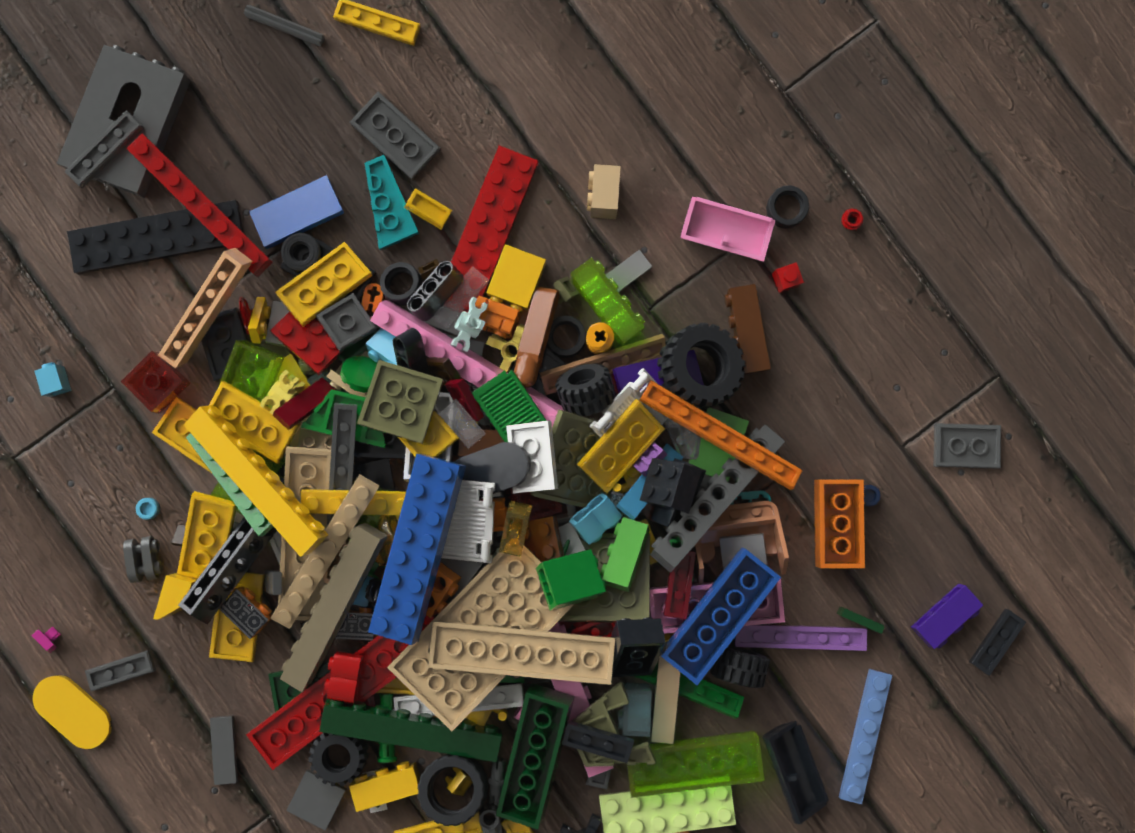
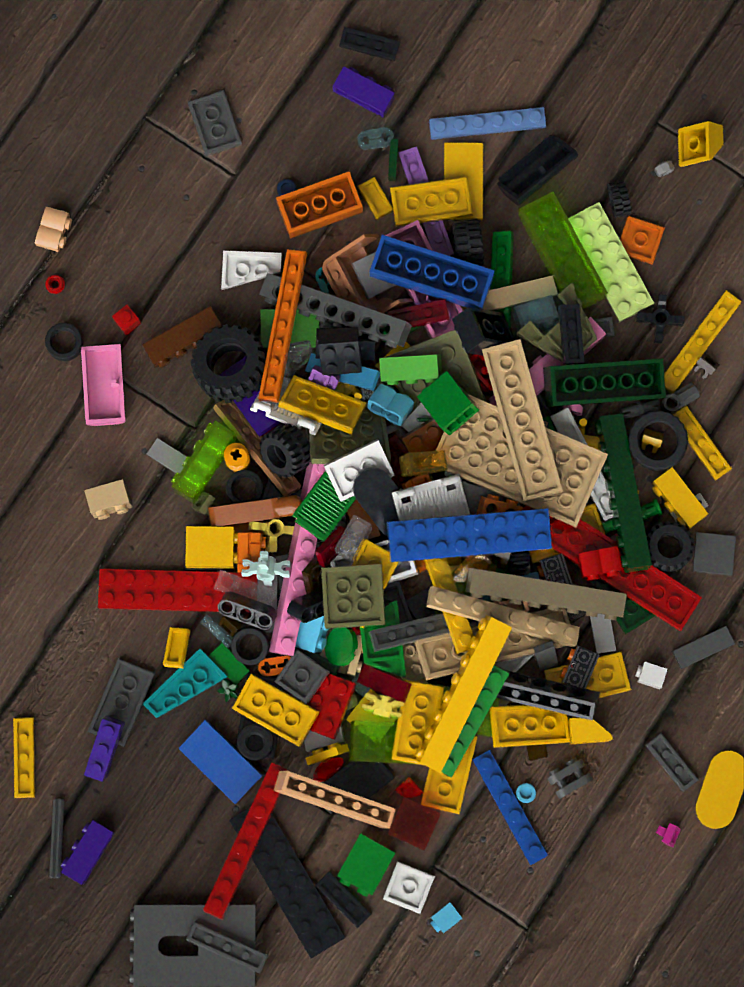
camera: 110 degrees left, 5 degrees down
(100, 355) = (408, 887): none -> white tile
(113, 285) = (343, 899): none -> black tile
(136, 319) = (365, 865): none -> green brick
(139, 486) = (510, 807): none -> blue plate
(197, 391) = (408, 789): none -> red tile
(214, 684) = (651, 675): none -> white brick
(257, 48) = (87, 852): none -> dark purple brick
(274, 649) = (602, 634): none -> light grey tile
(351, 99) = (104, 748): none -> dark purple brick
(365, 246) = (228, 689): none -> dark green plant
(397, 252) = (228, 664): none -> green tile
(430, 256) = (217, 631): none -> clear light blue axle
(798, 424) = (246, 267): none -> white wing
(800, 644) = (431, 201): none -> yellow tile
(811, 686) = (466, 161): none -> yellow tile
(825, 585) = (375, 198): none -> yellow tile
(896, 610) = (376, 143): none -> clear light blue beam
(911, 236) = (53, 229): none -> light nougat brick

